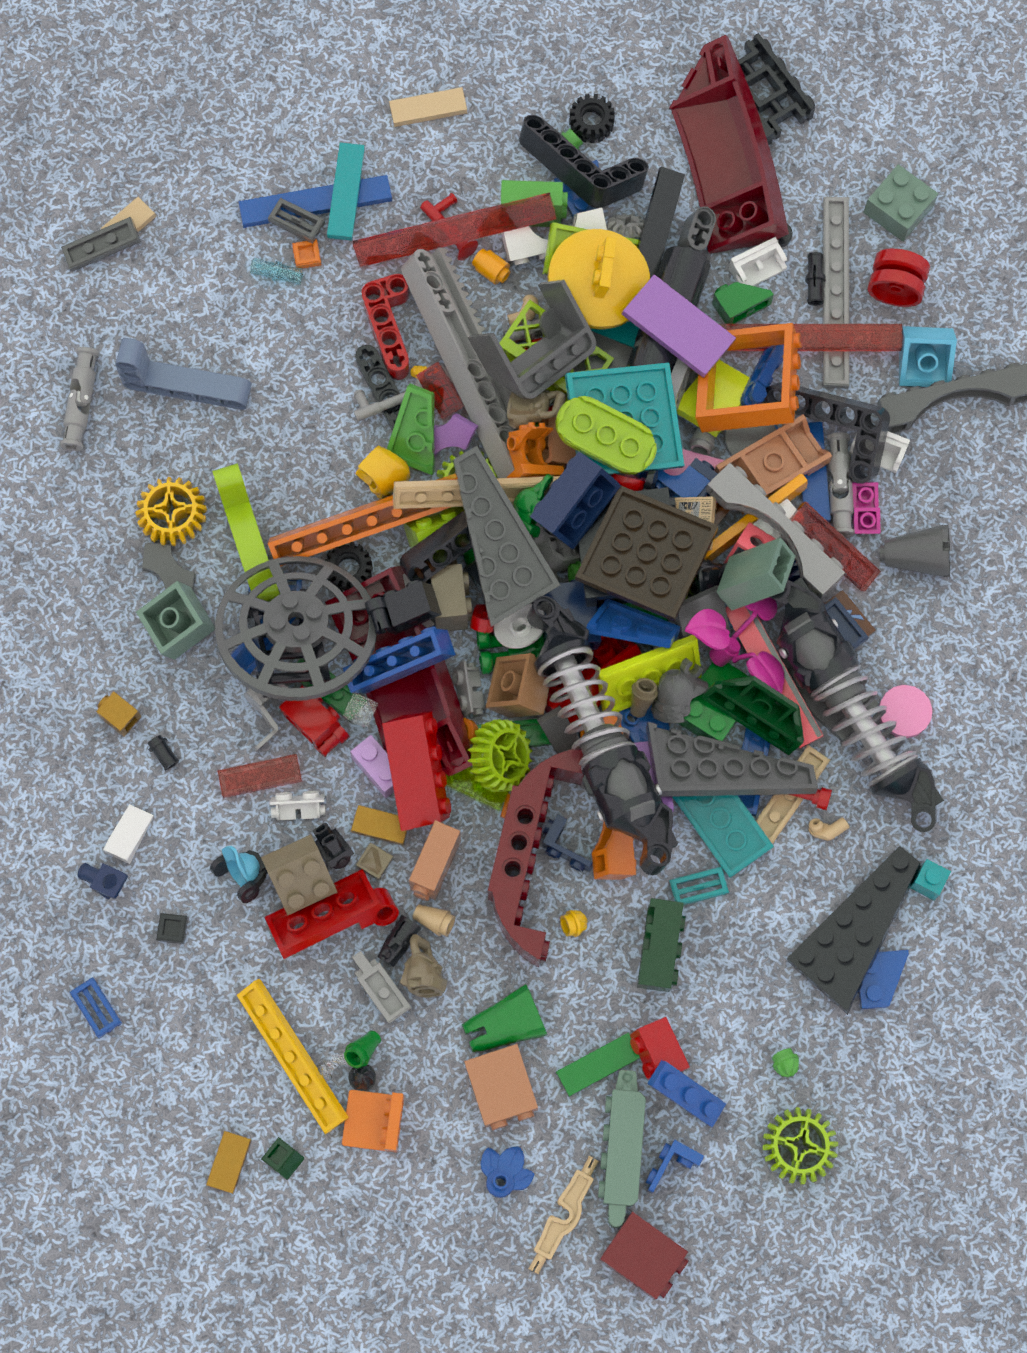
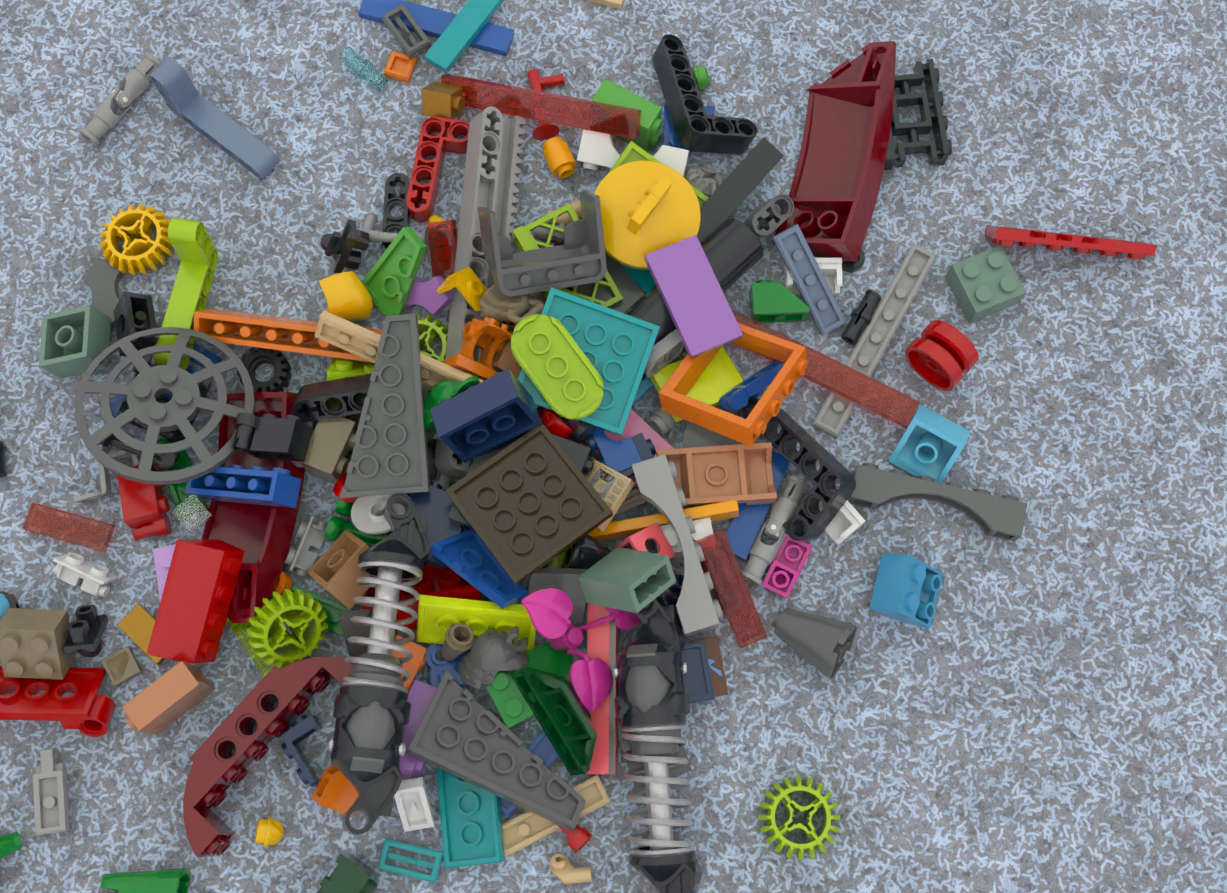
camera: 30 degrees right, 0 degrees up
(214, 576) = (133, 315): none -> black brick
(356, 429) = (342, 244): none -> black hips
(366, 265) = (442, 100): none -> pearl gold brick
(398, 941) = (96, 757): black hinge -> none
(422, 971) = (96, 801): dark tan piece -> none
(434, 919) = (141, 755): tan cone -> none
(488, 406) = (467, 284): none -> yellow bracket
(592, 105) = (736, 53): black tyre -> none
(687, 844) = (414, 805): none -> white plate
(758, 267) = (809, 279): none -> sand blue tile
(899, 153) = (1056, 241): none -> red wing
(909, 708) = (714, 791): bright pink tile -> none
(969, 479) = (906, 590): none -> dark azure slope
(991, 698) = (808, 829): none -> lime gear

